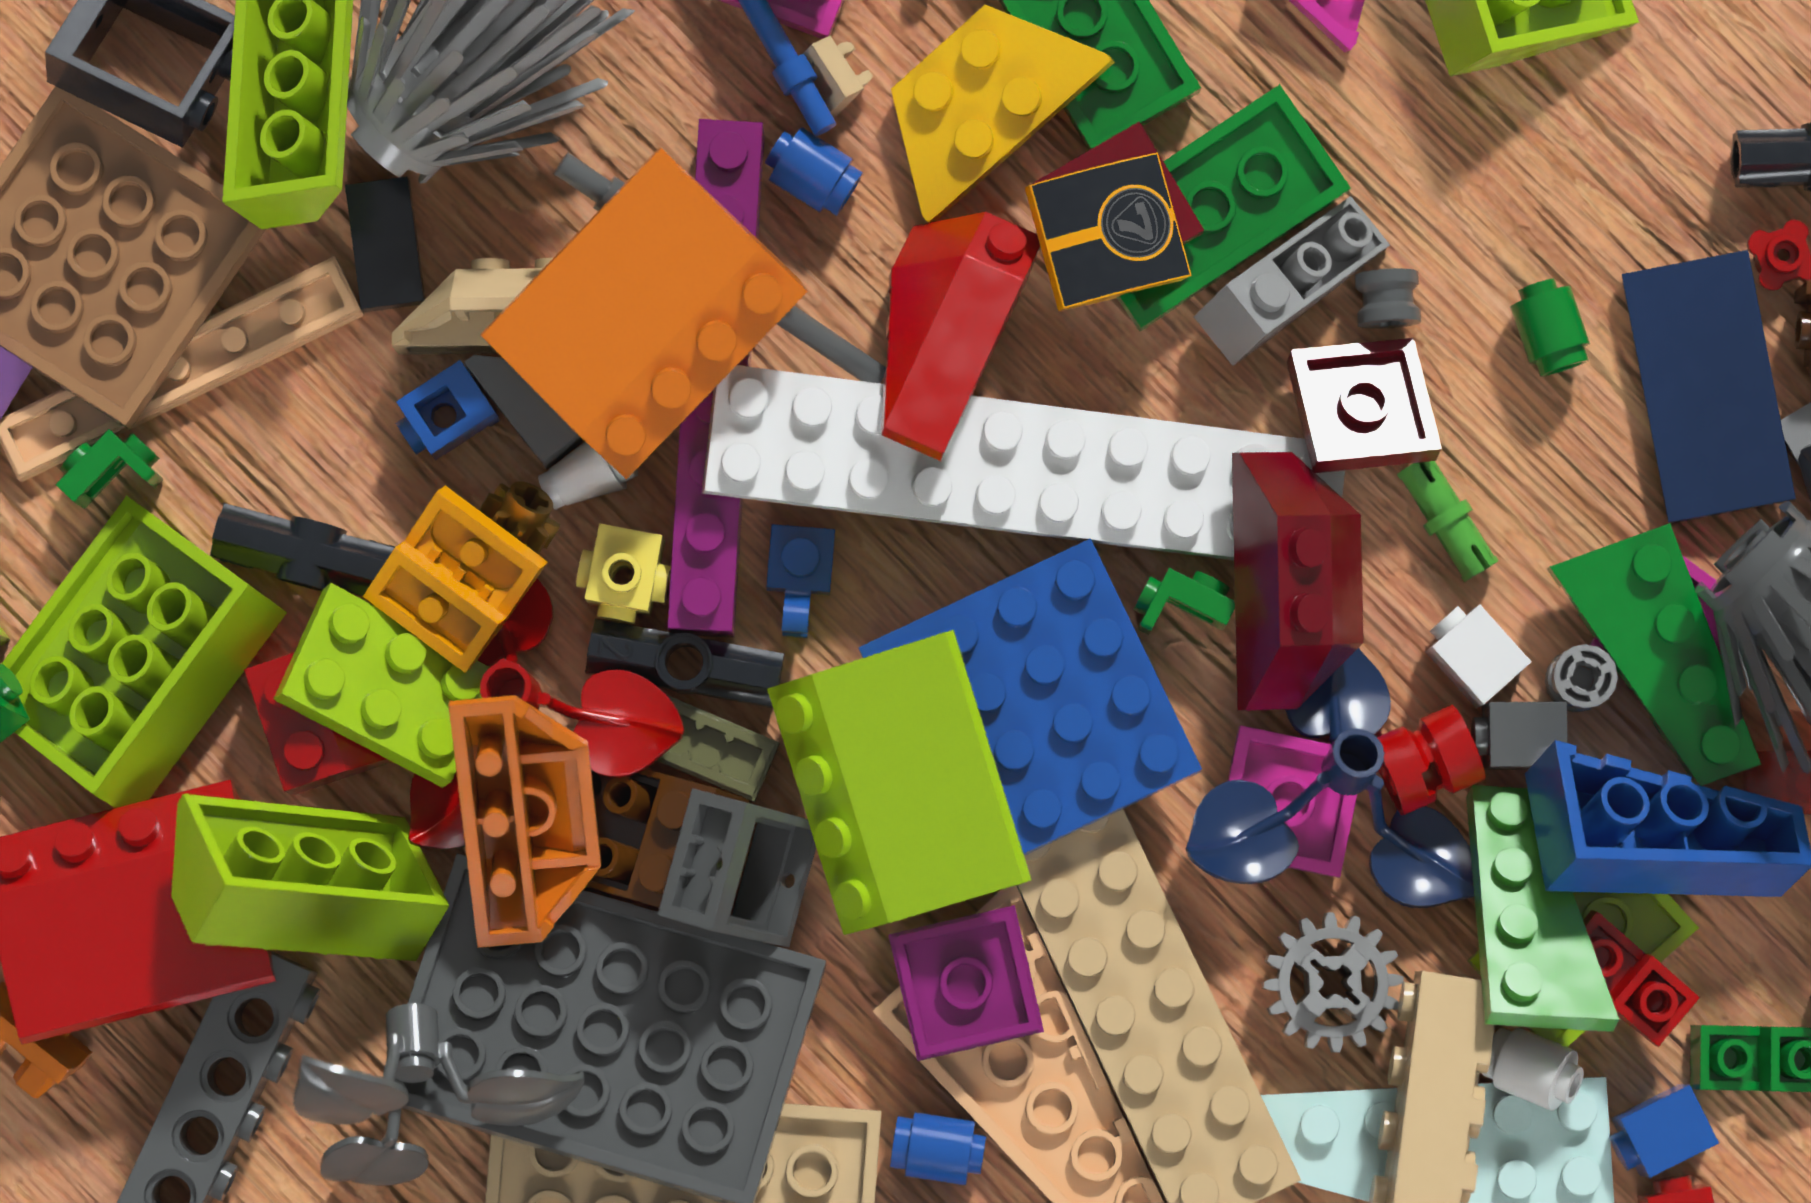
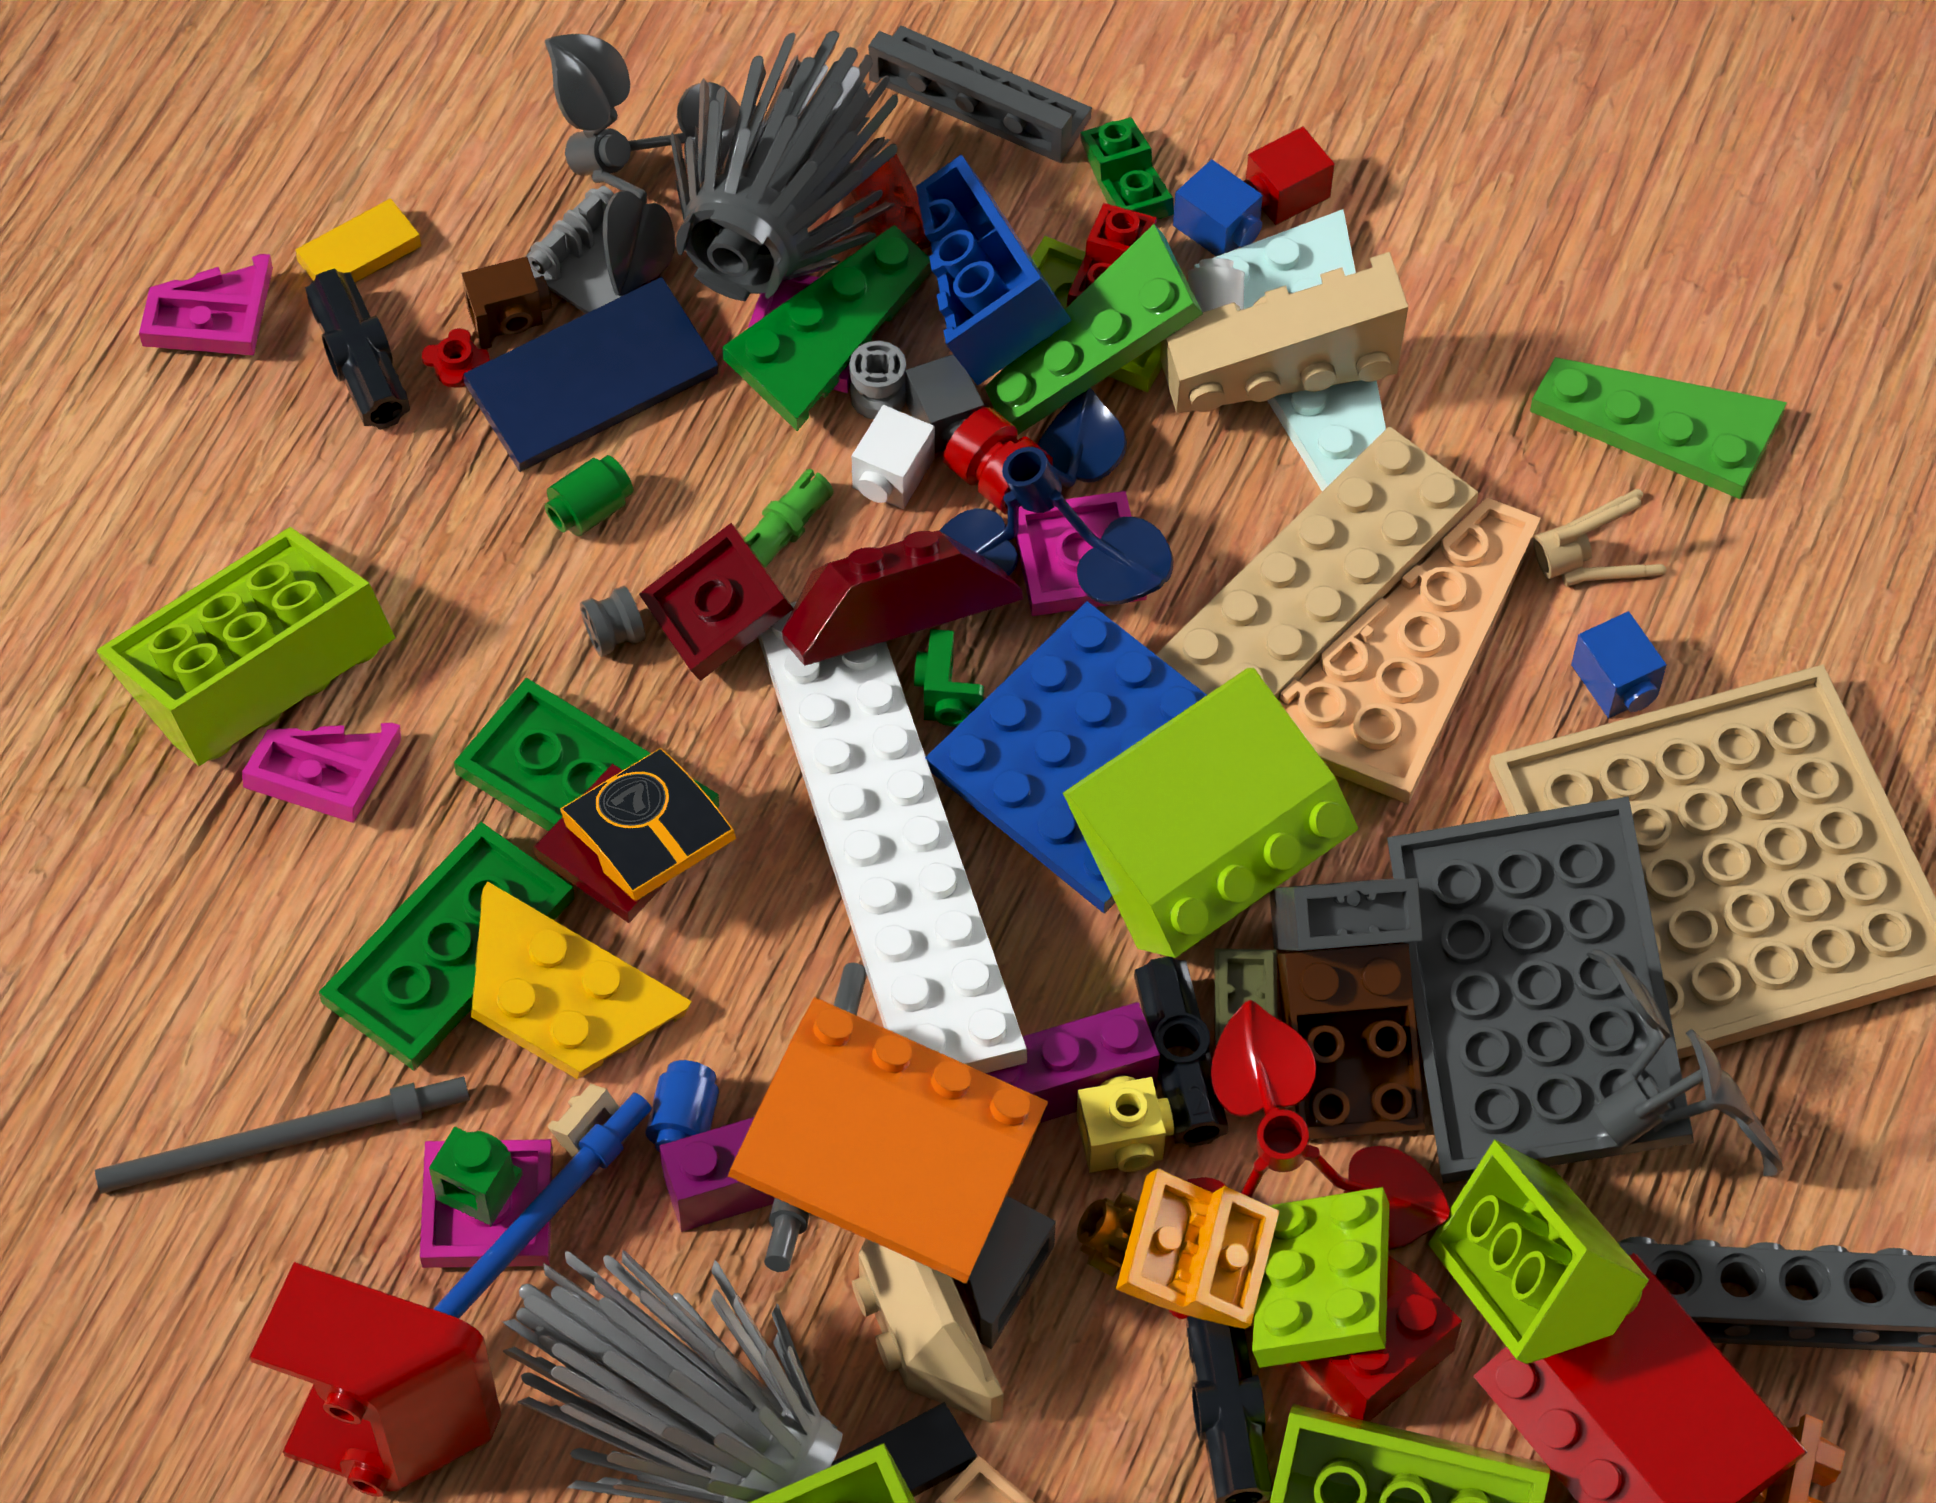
camera: 110 degrees left, 25 degrees down
(449, 388) = (1038, 1317): blue brick -> none
(523, 817) = (1394, 1101): orange wedge -> none
(581, 477) = (1045, 1192): white cone -> none
(799, 566) = (1051, 997): blue plate -> none
(937, 1148) = (1499, 707): blue brick -> none
(945, 318) = (761, 927): red wedge -> none
(966, 983) = (1358, 717): magenta plate -> none
(1290, 280) = (635, 698): light grey slope -> none
(1352, 961) = (1214, 470): light grey gear -> none

